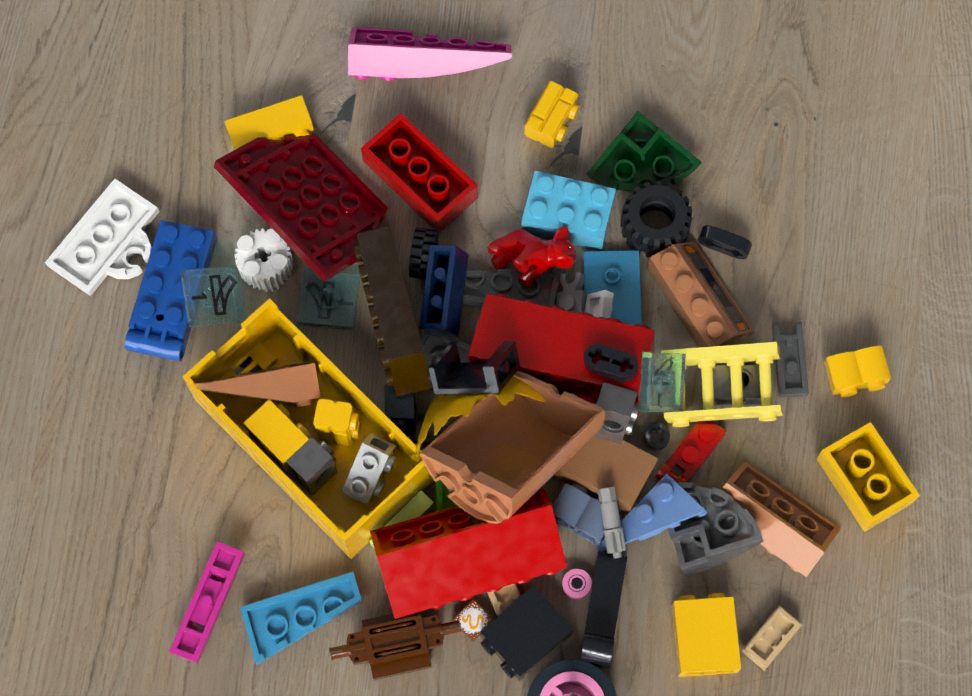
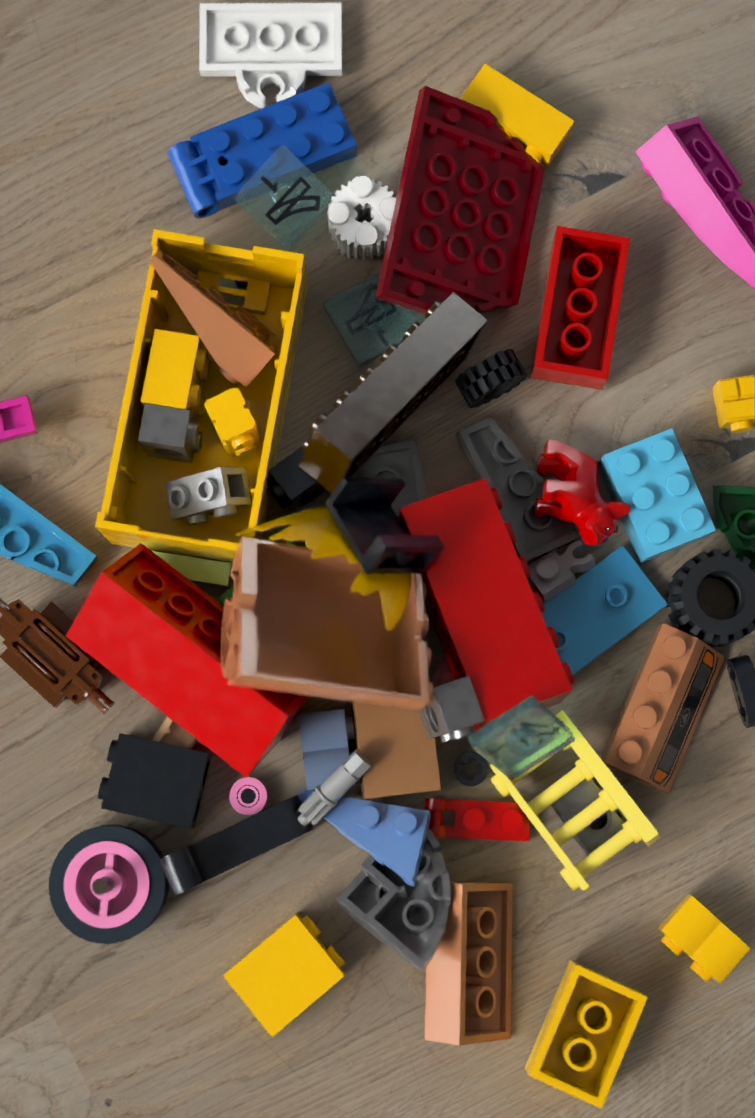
camera: 50 degrees right, 10 degrees up
(444, 291) = (459, 430): dark blue brick -> none
(473, 620) = (133, 715): tile -> none
(600, 304) = (566, 607): white plate -> none
(611, 363) = (505, 666): black beam -> none
(771, 637) = (334, 1045): tan plate -> none
(791, 366) = (654, 864): dark grey hinge -> none

